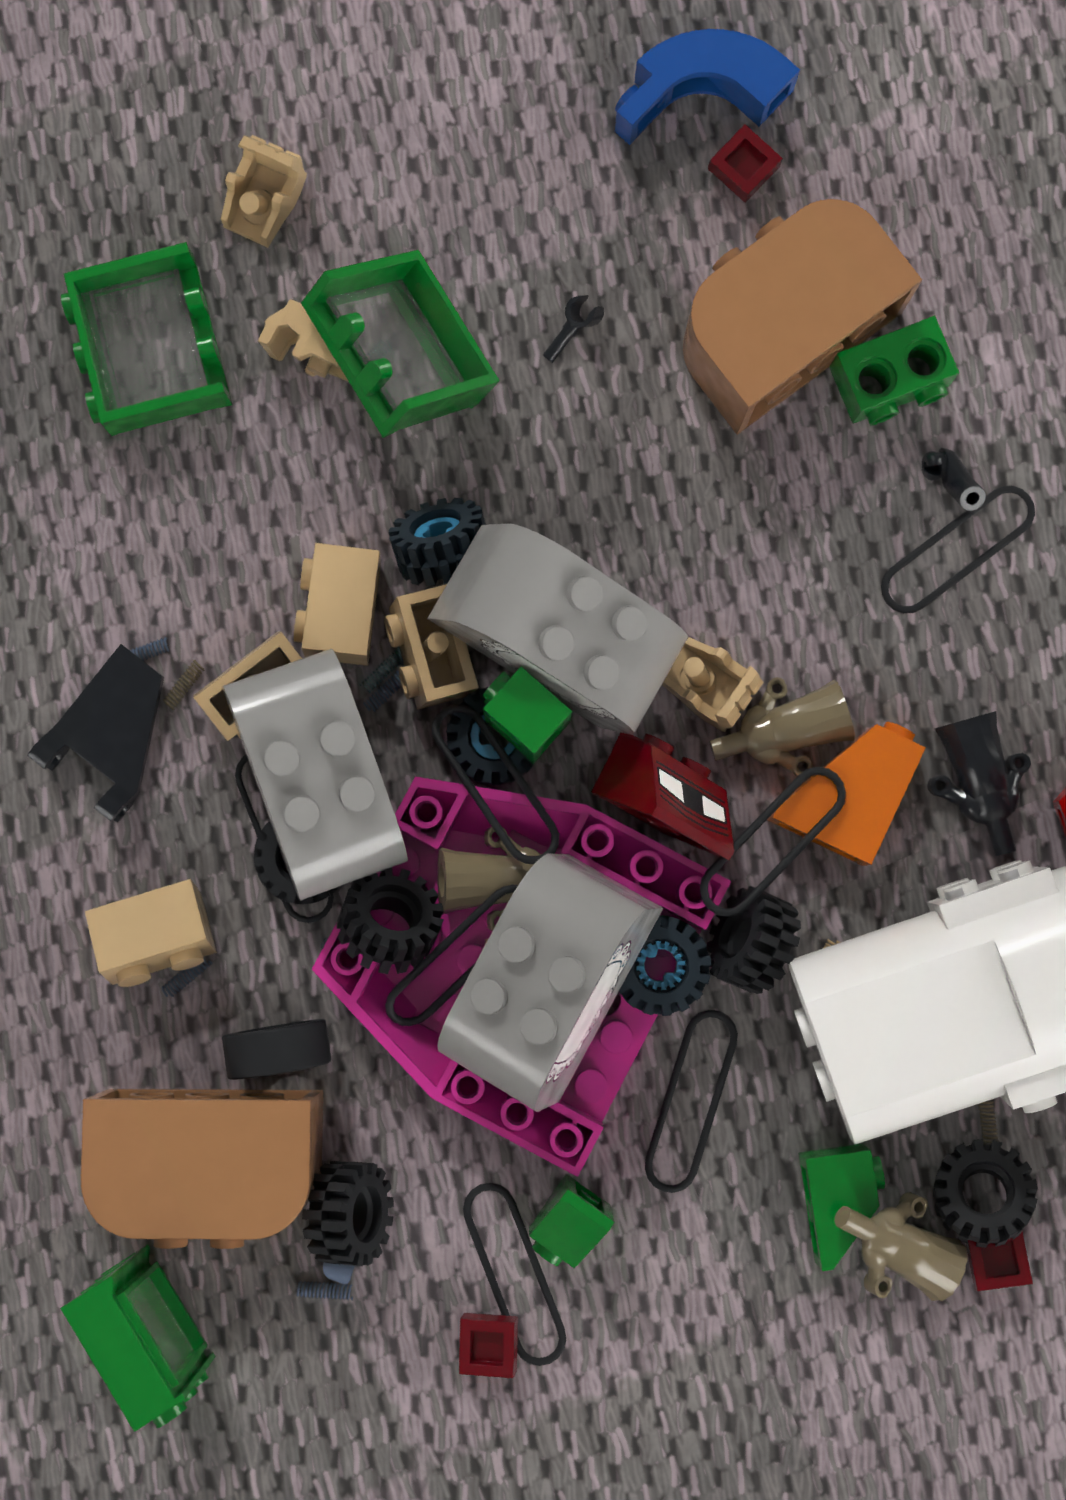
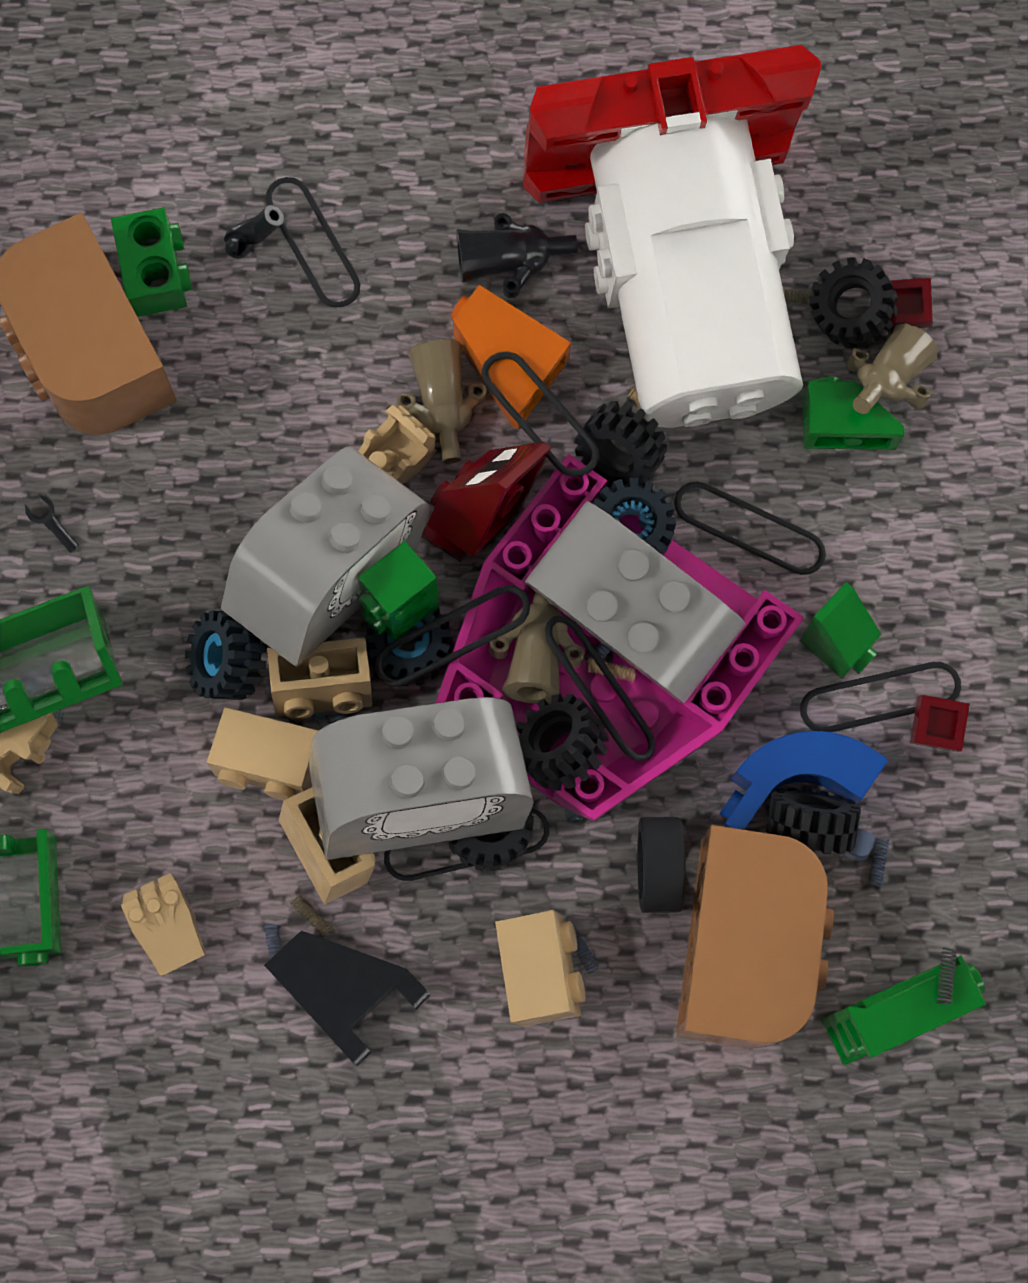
camera: 85 degrees left, 10 degrees down
(149, 532) = (164, 924): none -> tan hand
(152, 1387) = (949, 982): none -> dark grey leg
(421, 1184) = (807, 756): none -> blue arch

